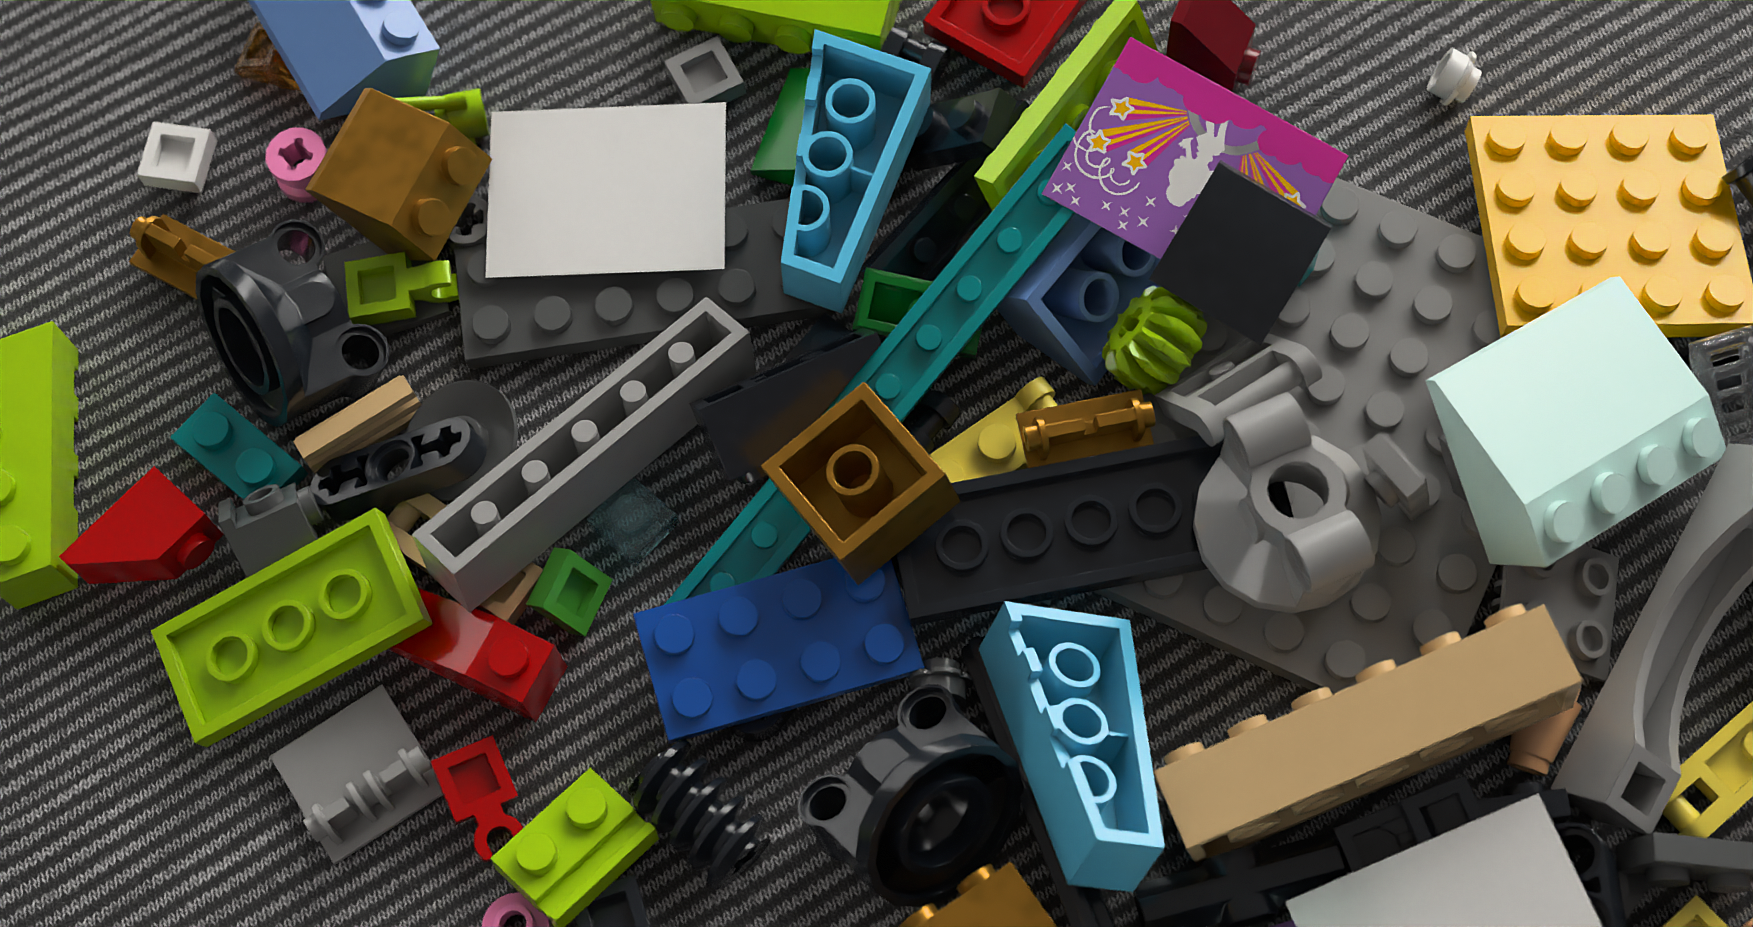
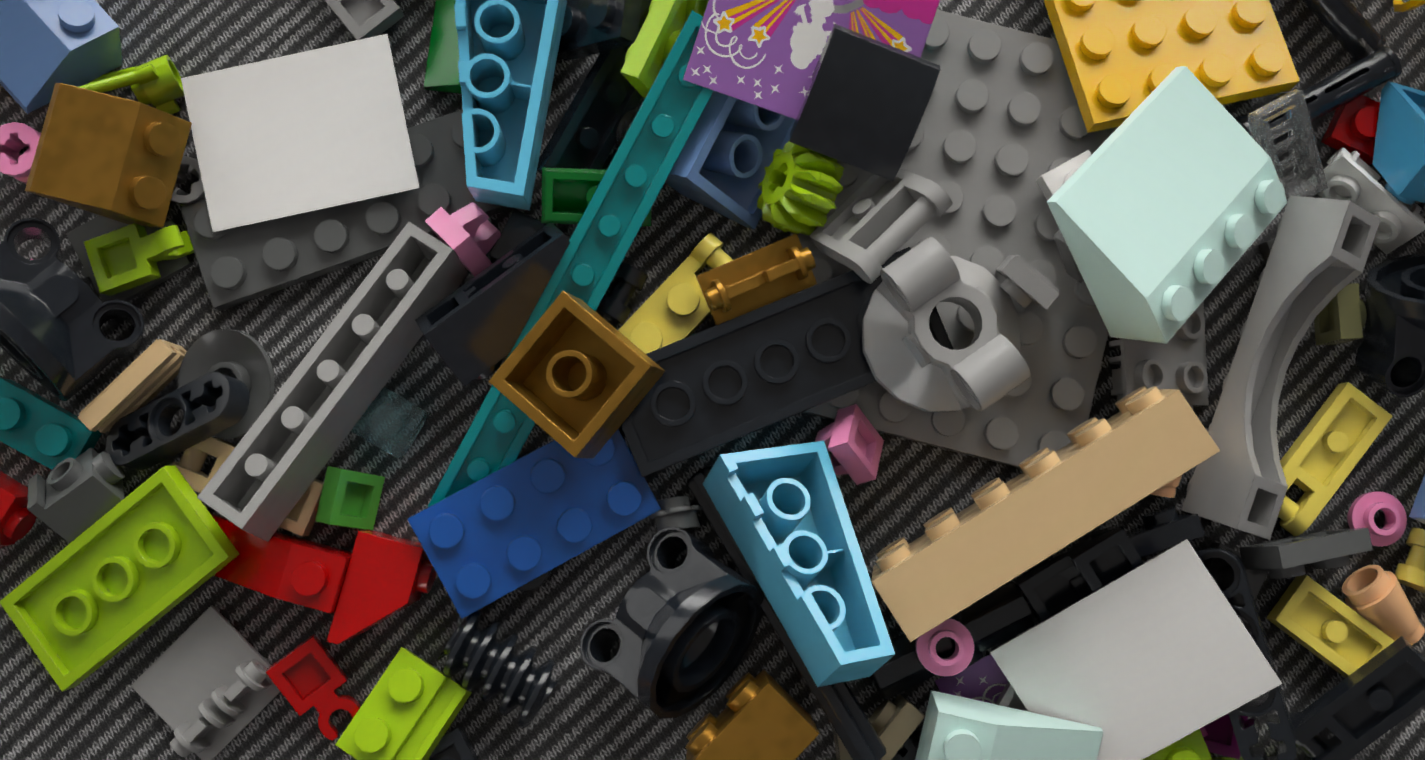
camera: 20 degrees left, 15 degrees up
(582, 693) = (379, 582): none -> red slope
(761, 319) = (467, 234): none -> bright pink tile
(1166, 638) = (853, 445): none -> bright pink tile
(1223, 899) = (958, 660): none -> bright pink plate

